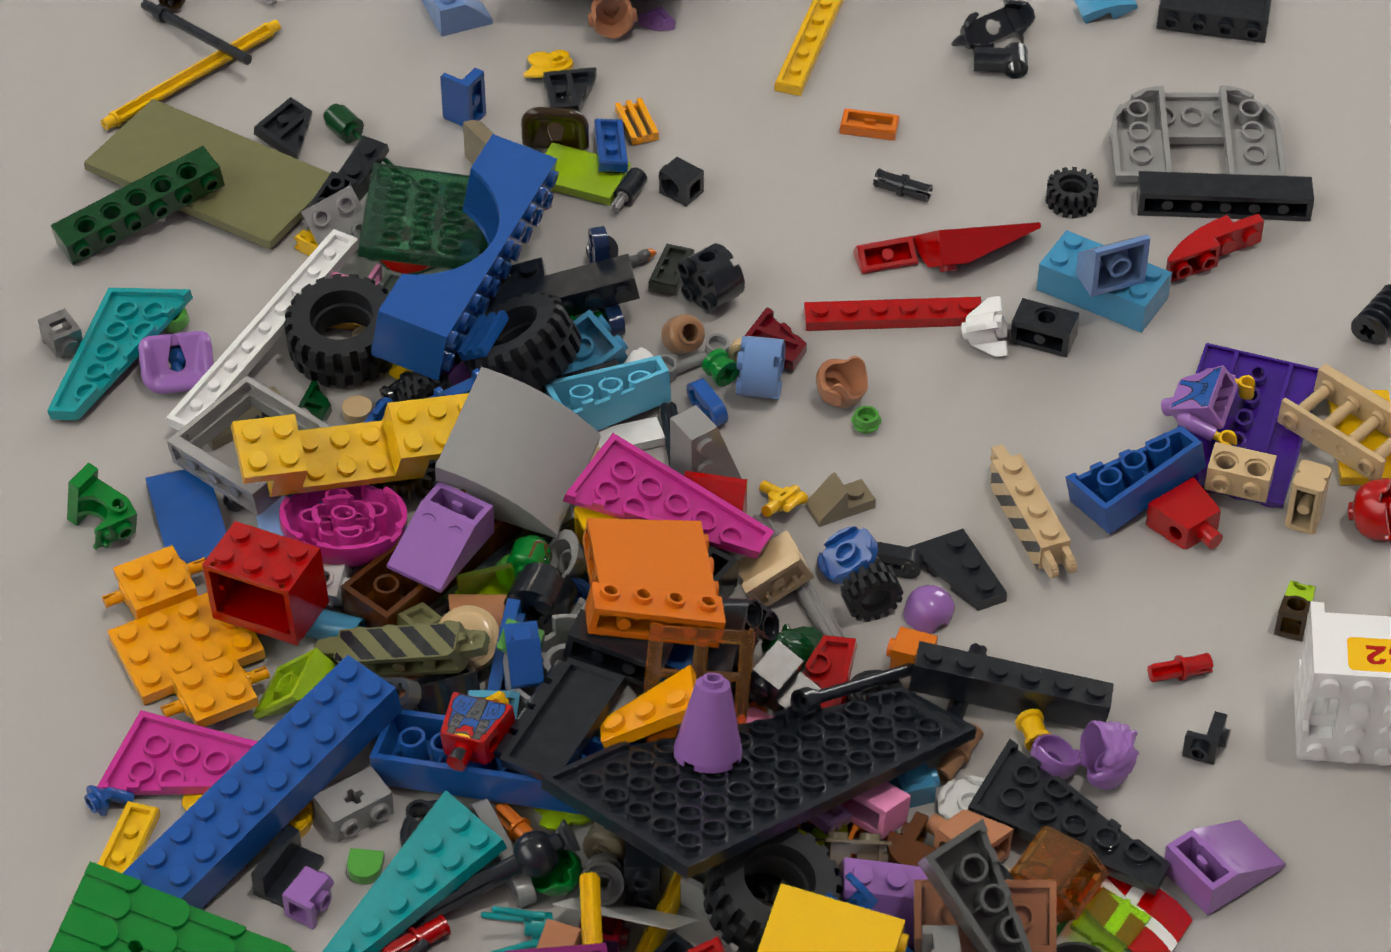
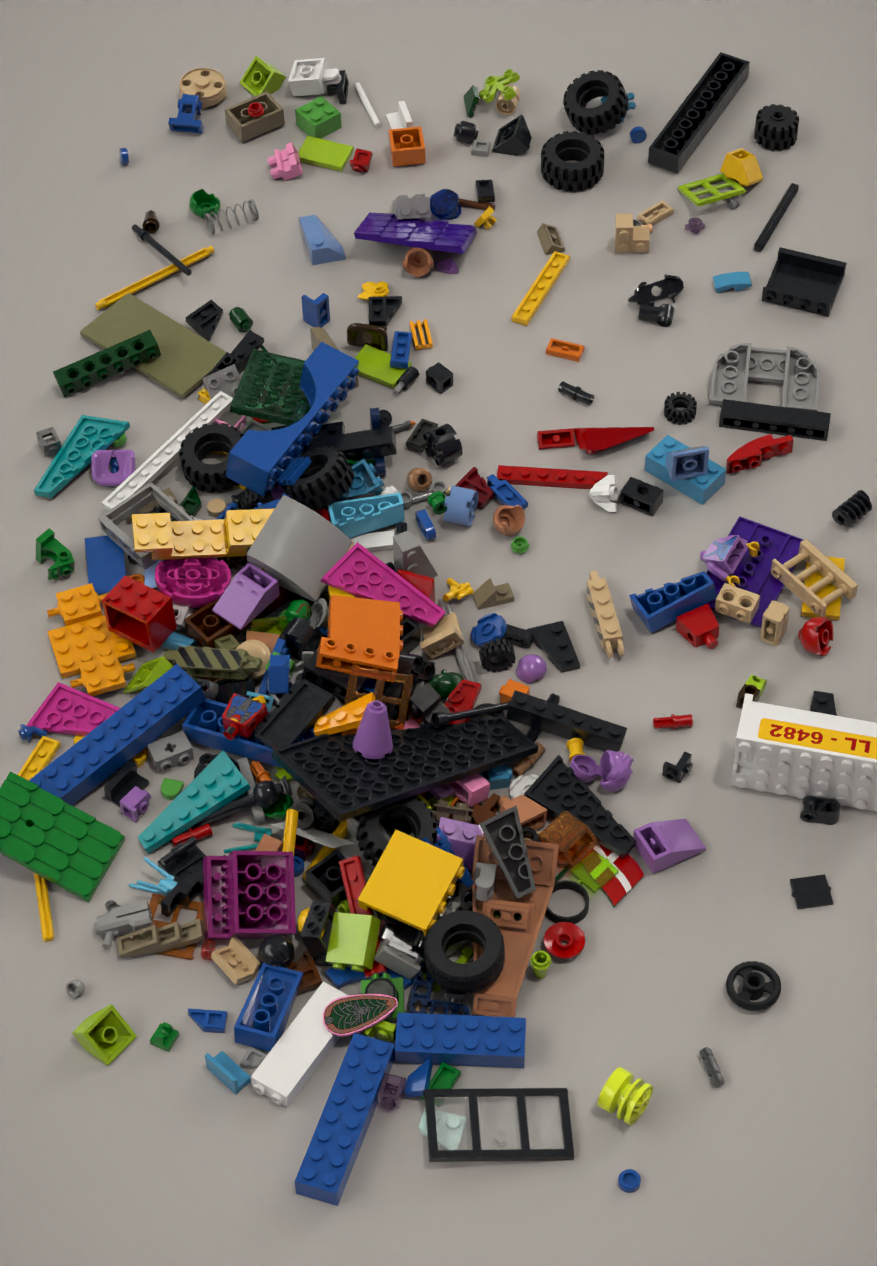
camera: 10 degrees right, 5 degrees up
(824, 341) = (505, 492): none -> blue hinge

